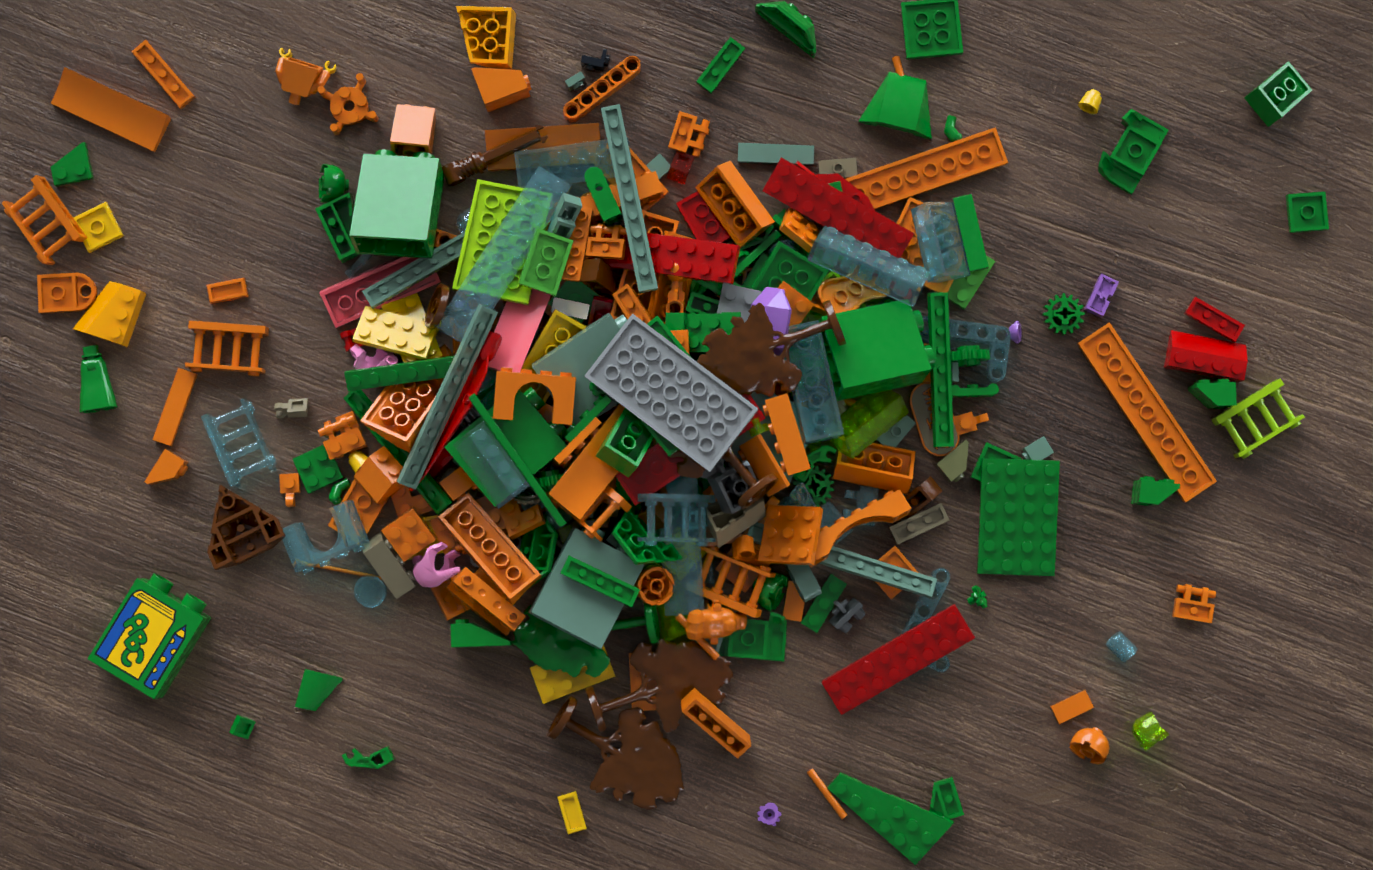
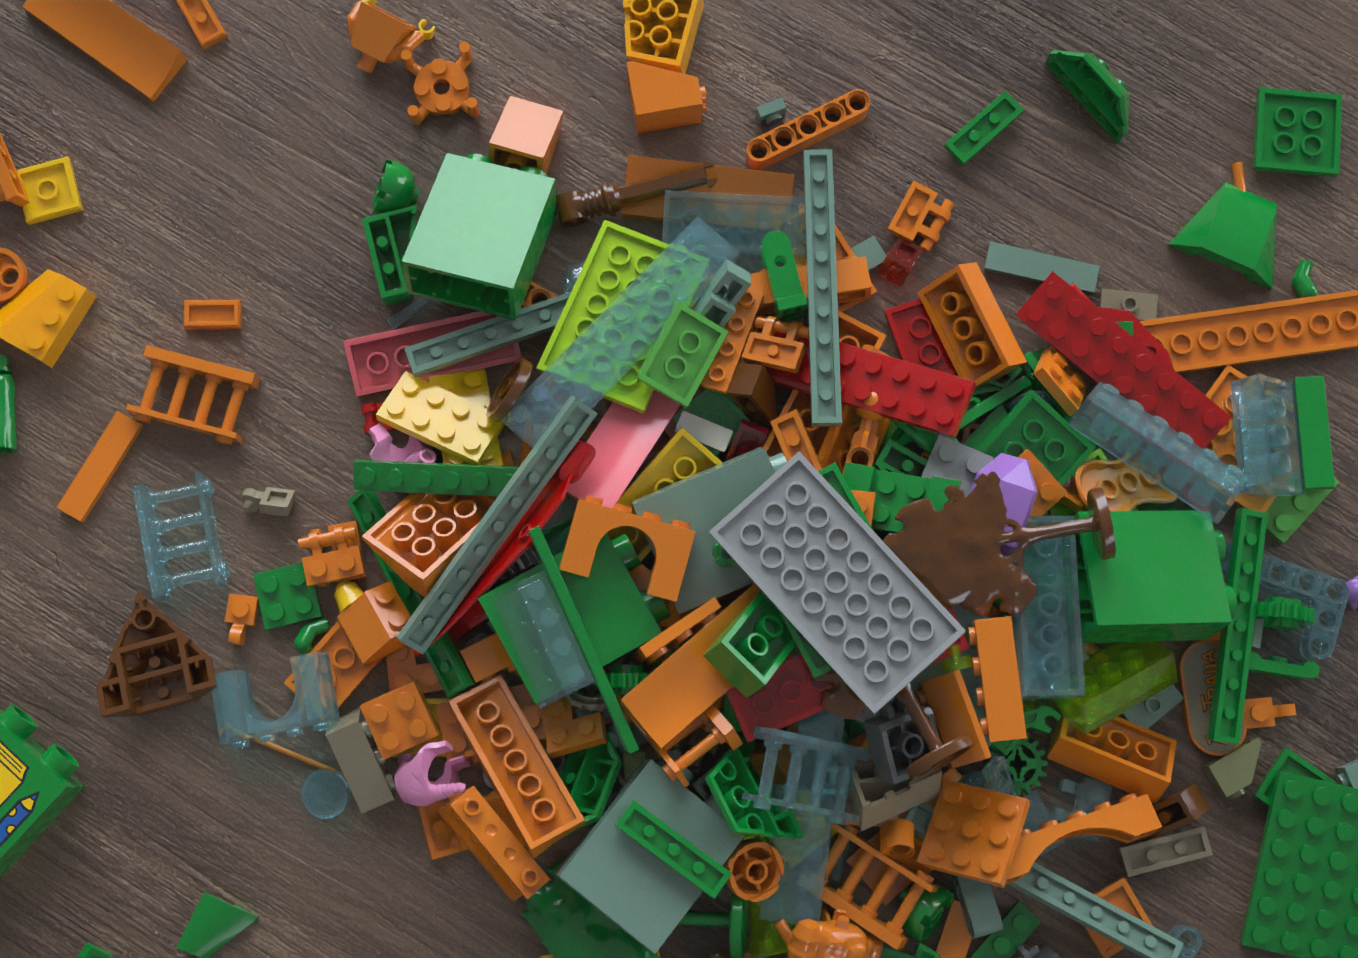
camera: 15 degrees right, 5 degrees down
(73, 167) = (33, 100): green wing -> none
(167, 468) = (67, 553): orange slope -> none
(473, 635) = (465, 891): green slope -> none
(592, 64) = (802, 92): black bracket -> none
(600, 404) = (701, 595): green plate -> none

